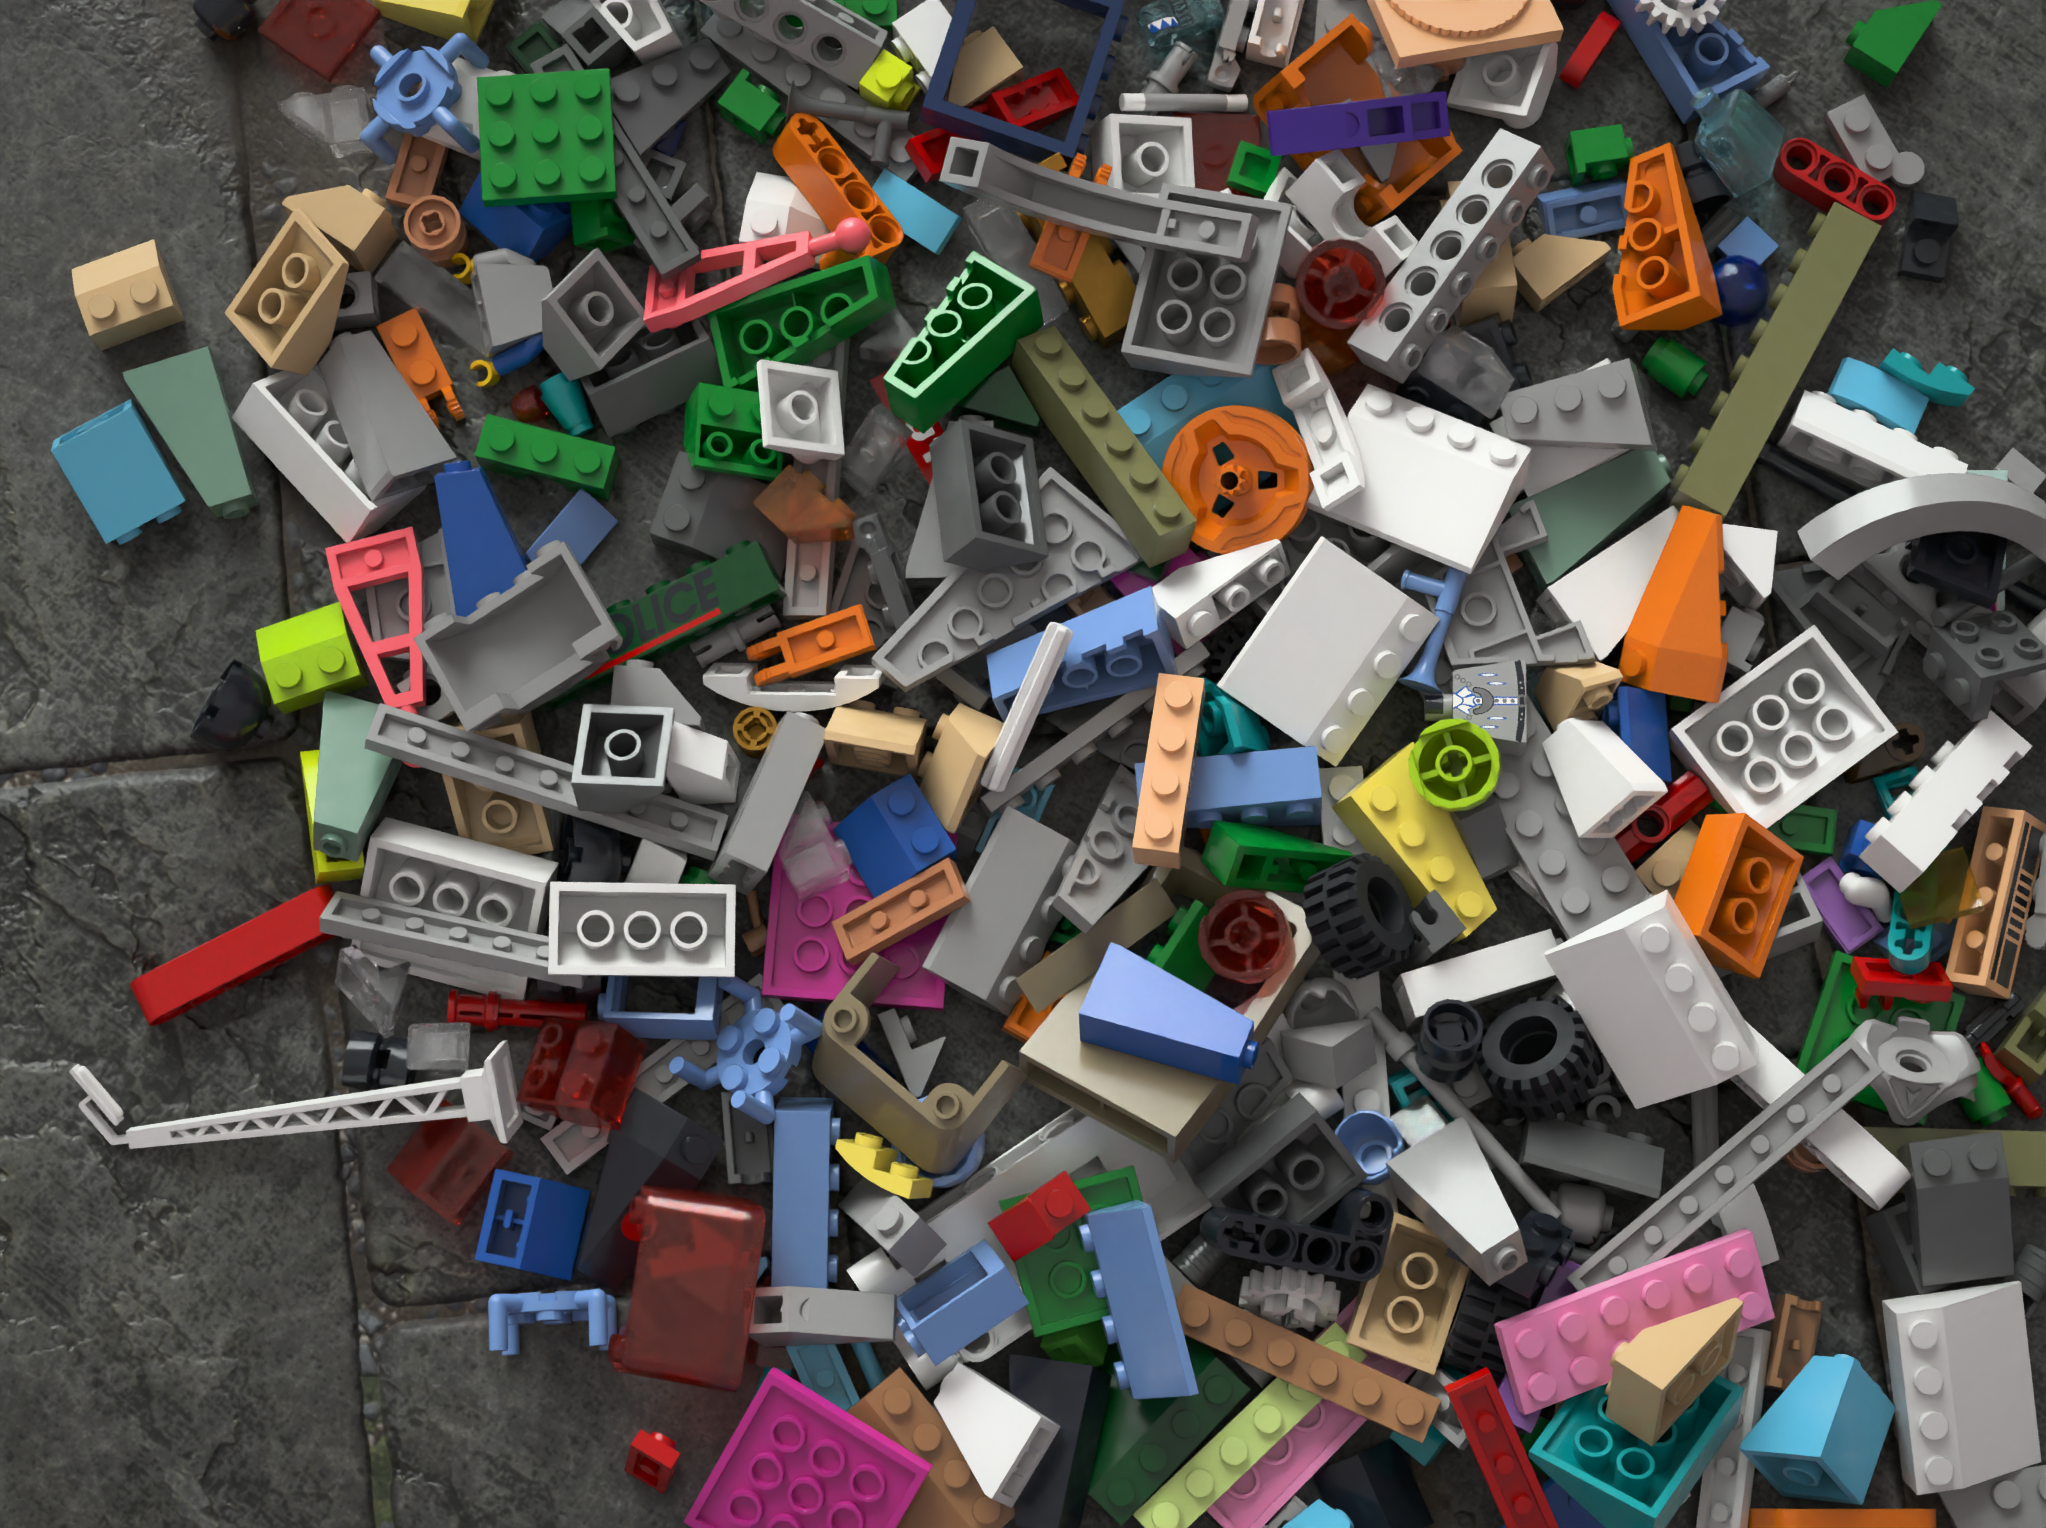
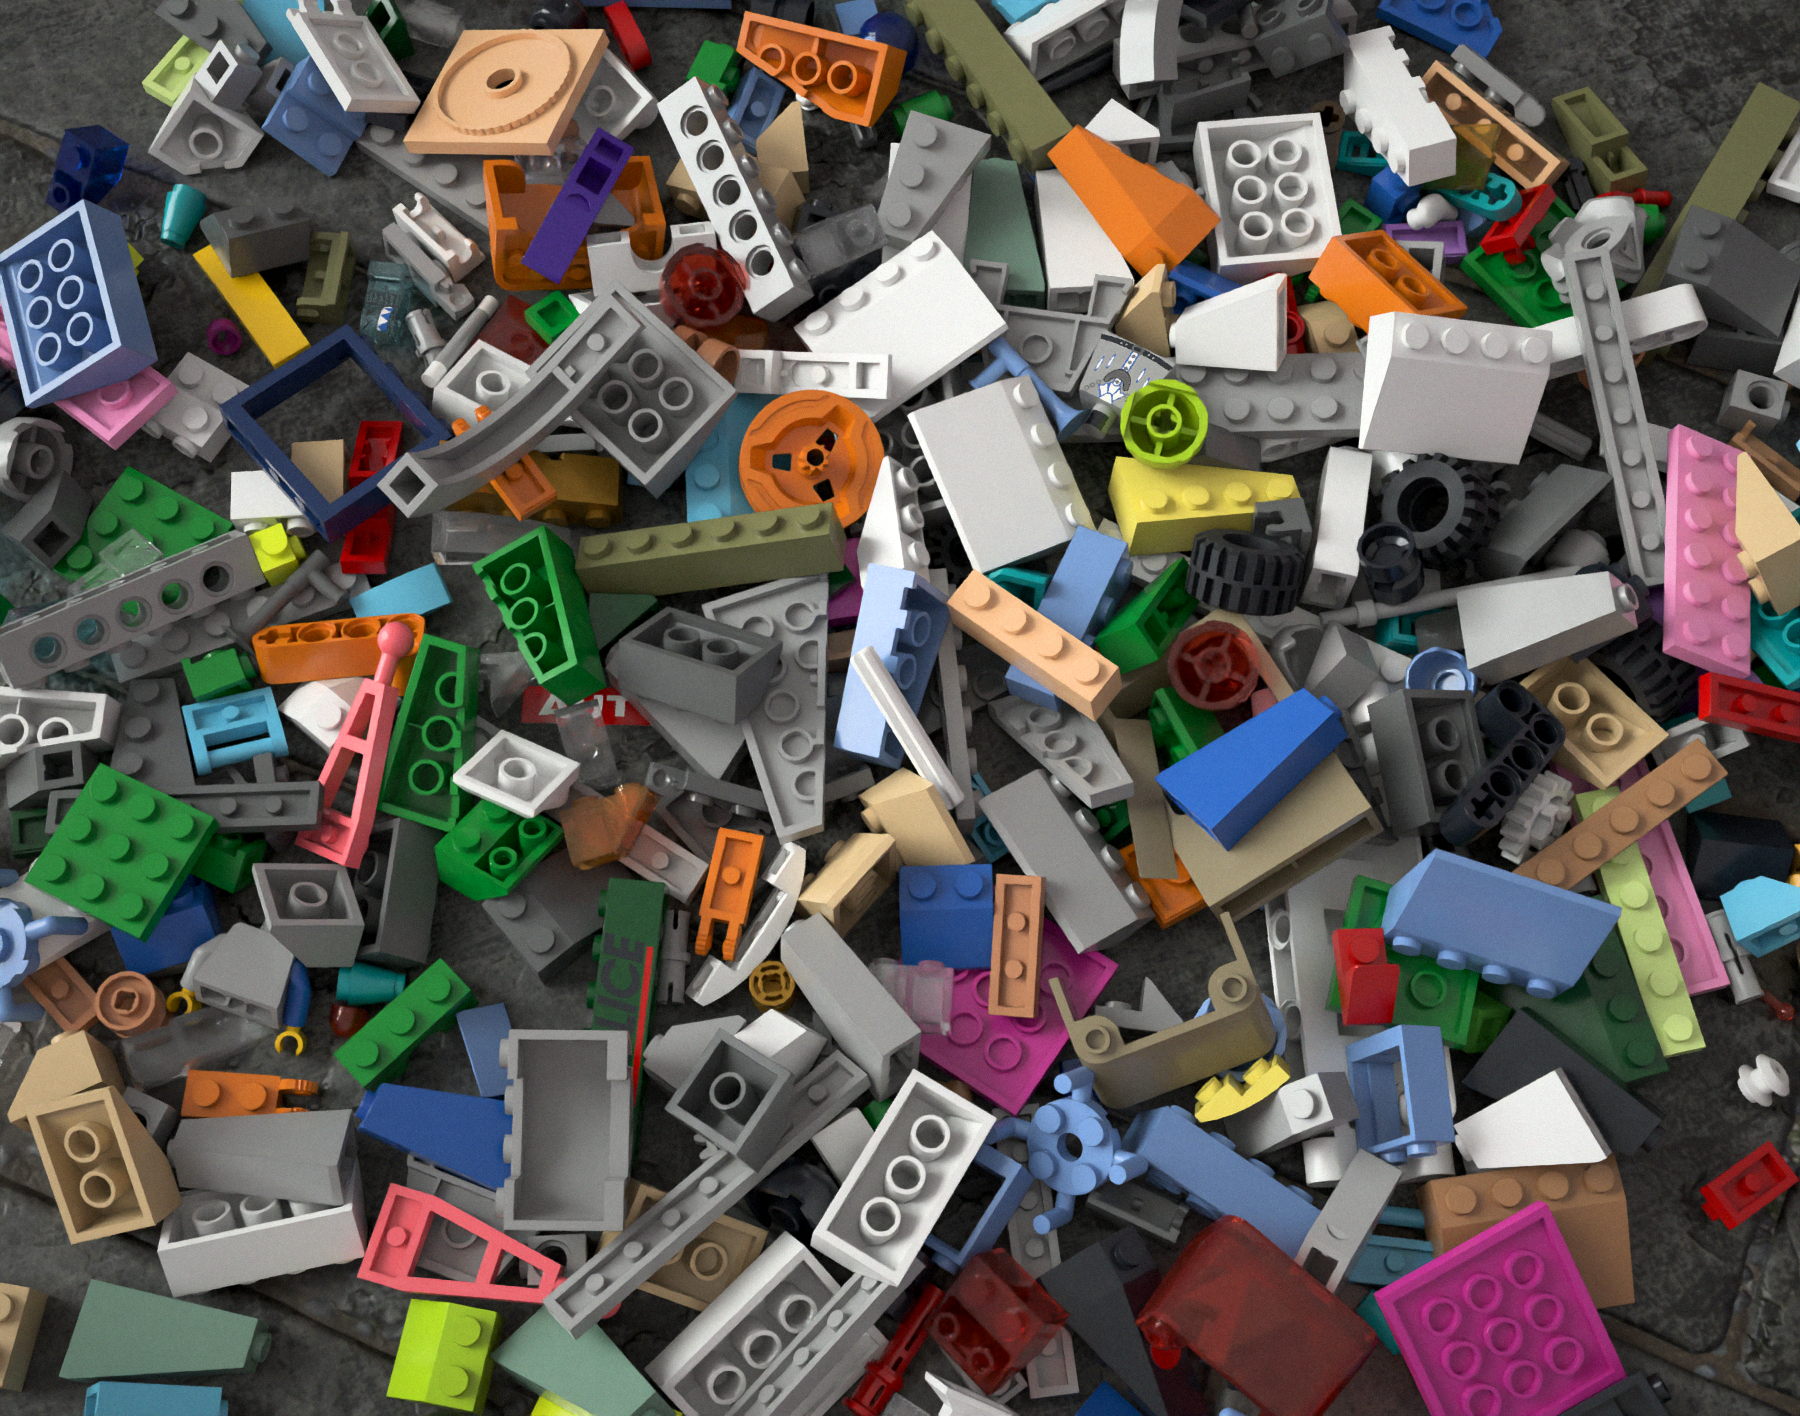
camera: 60 degrees left, 10 degrees down
(719, 142) = (231, 720): none -> medium azure plate
(1861, 1283) = (1747, 388): none -> light grey brick

